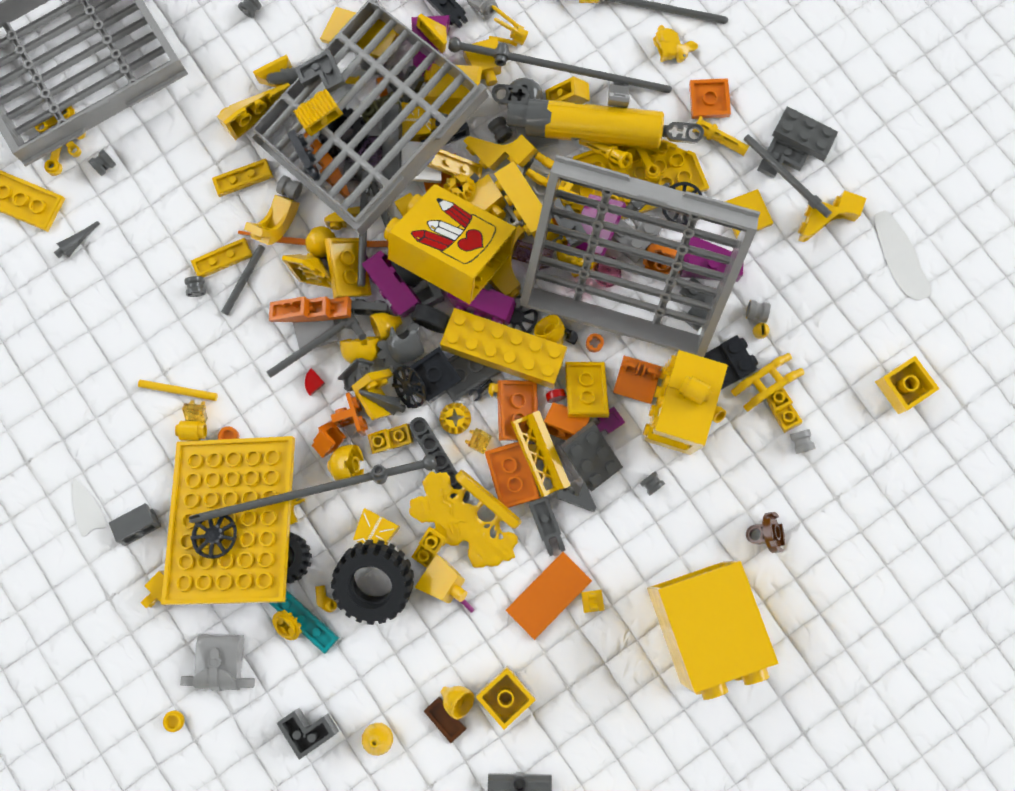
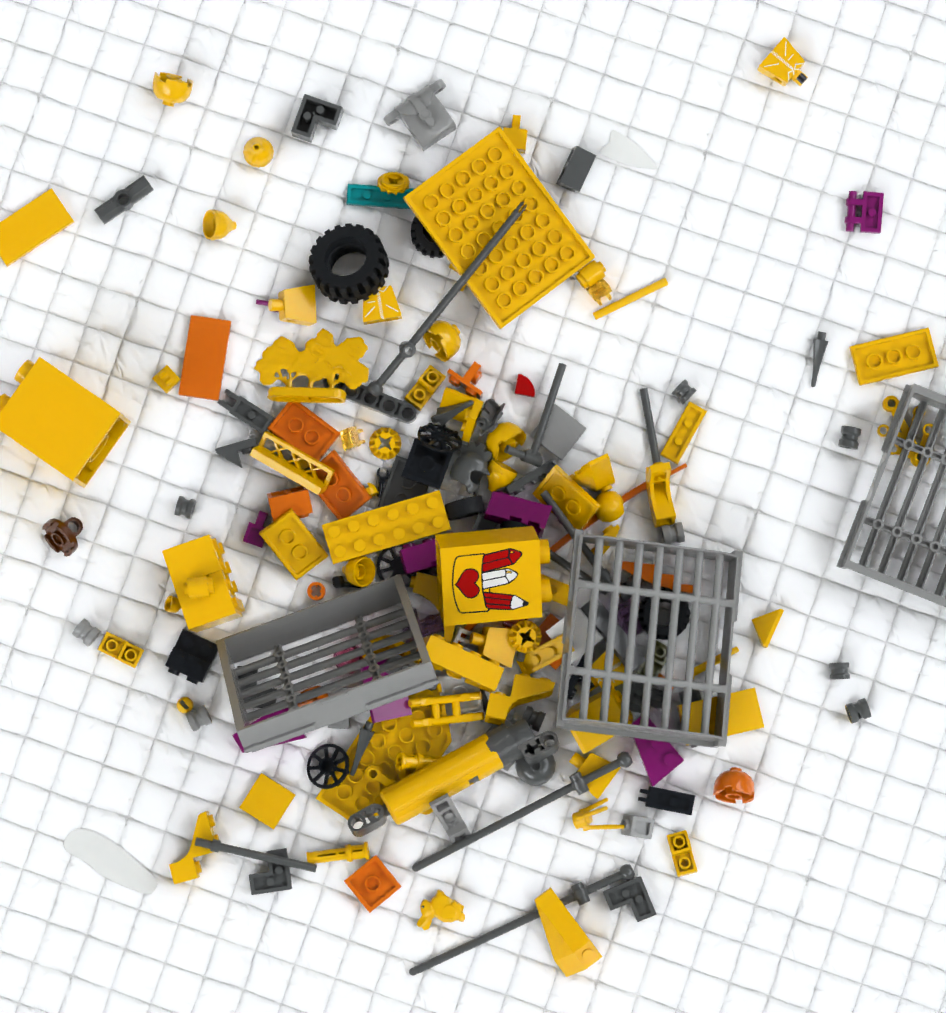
camera: 145 degrees right, 5 degrees up
(173, 721) = (426, 49): yellow plate -> none
(213, 535) = (499, 205): black wheel -> none
(228, 433) = (559, 293): orange tile -> none
(242, 177) = (722, 514): yellow tile -> none
(244, 114) = (764, 565): yellow wedge -> none
(285, 76) = (753, 626): dark grey hinge -> none
(305, 155) = (665, 558): black hinge -> none
(310, 310) = (570, 441): orange slope -> none
(318, 112) = (683, 603): yellow brick -> none
(321, 67) = (709, 647): dark grey plate -> none
(324, 601) = (379, 222): yellow arm -> none
(328, 439) = (473, 348): orange window -> none
(428, 547) = (326, 323): yellow slope -> none
(433, 31) = (648, 758): yellow slope -> none
(447, 725) = (209, 201): reddish brown tile -> none
(505, 697) = (181, 254): yellow brick -> none
(555, 395) = (315, 521): red tile -> none
(570, 90) = (498, 794): yellow slope -> none
(591, 456) = (249, 490): dark grey plate -> none
(637, 379) = (258, 586): orange hinge -> none
(764, 392) = (139, 670): yellow piece -> none
(805, 133) = (267, 910): dark grey plate -> none
(907, 385) = (32, 742): yellow brick -> none

